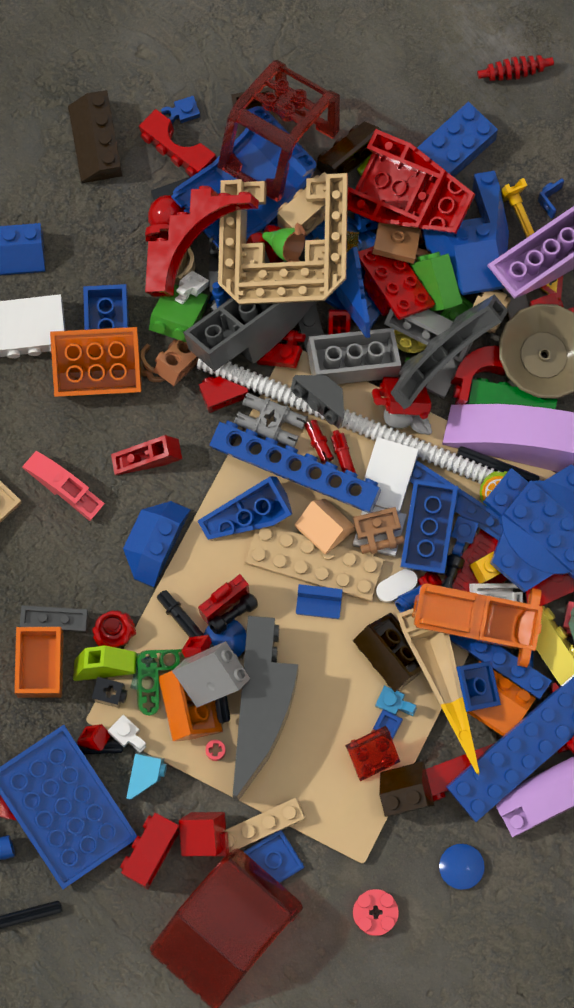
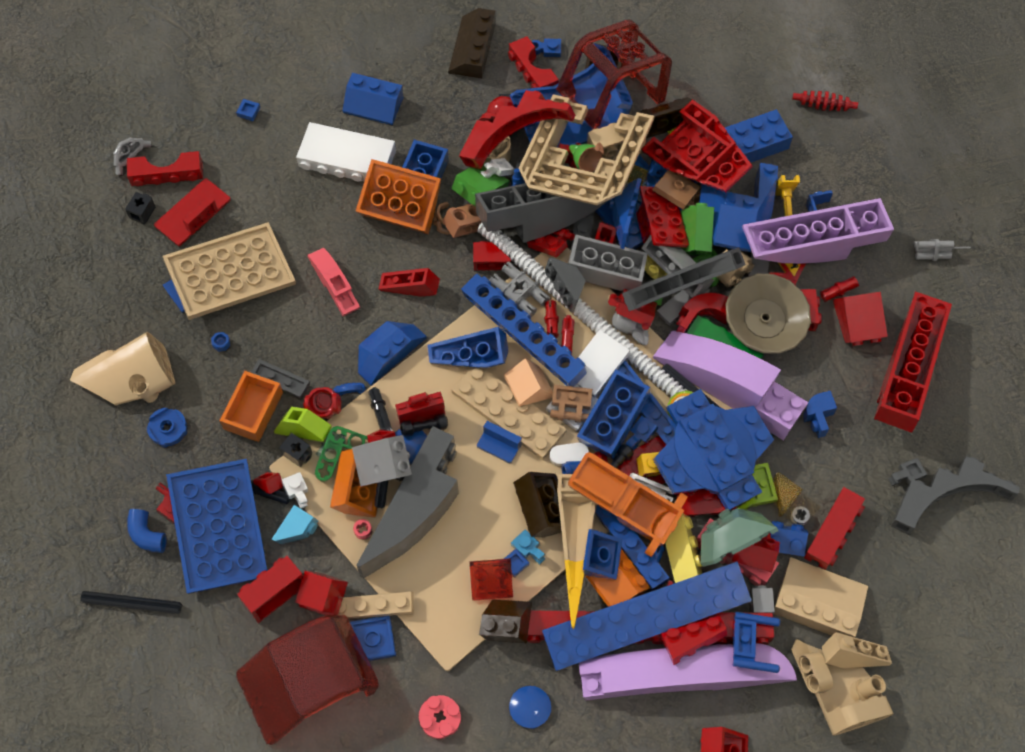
camera: 20 degrees right, 10 degrees down
(133, 600) = (349, 388): none -> blue piece

